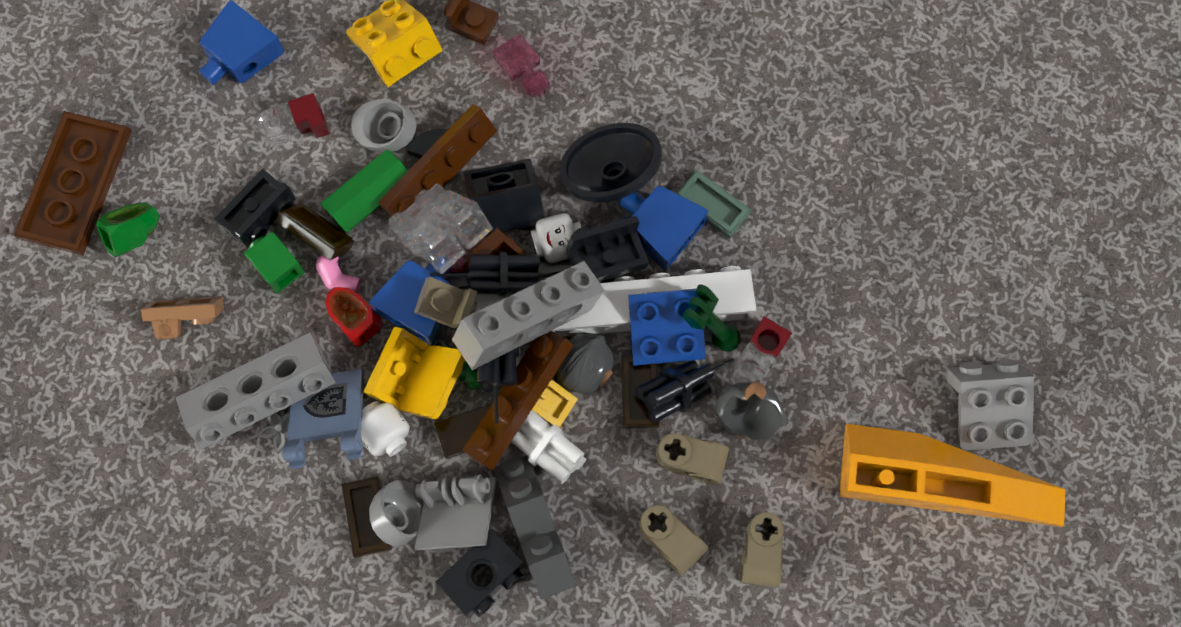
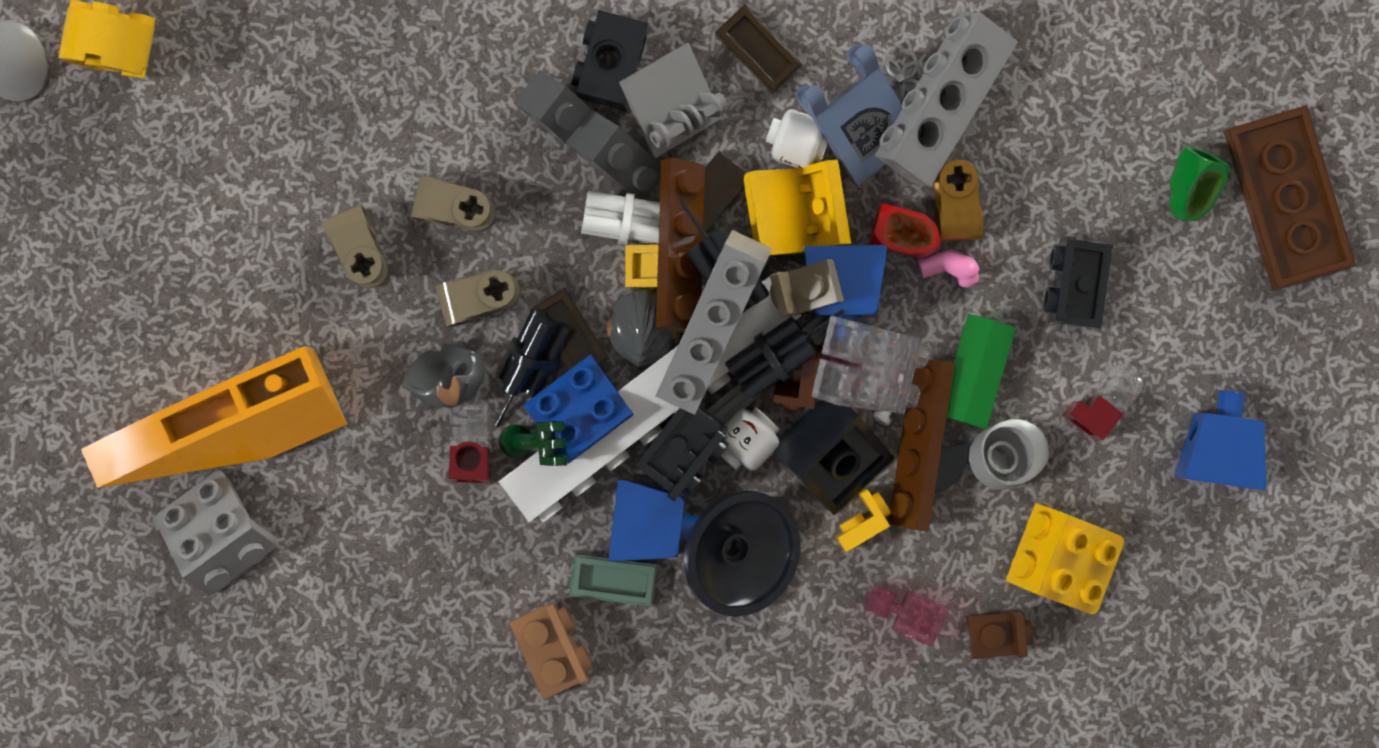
camera: 150 degrees right, 15 degrees up
(167, 314) = (1087, 125): medium nougat hinge -> none
(274, 262) = (1021, 238): green brick -> none
(301, 309) = (958, 212): none -> pearl gold piece
(315, 230) = (1001, 296): dark brown tile -> none
(396, 513) = (729, 66): light grey hat -> none
(513, 133) = (859, 529): none -> yellow bracket
(786, 182) = (551, 649): none -> medium nougat bracket

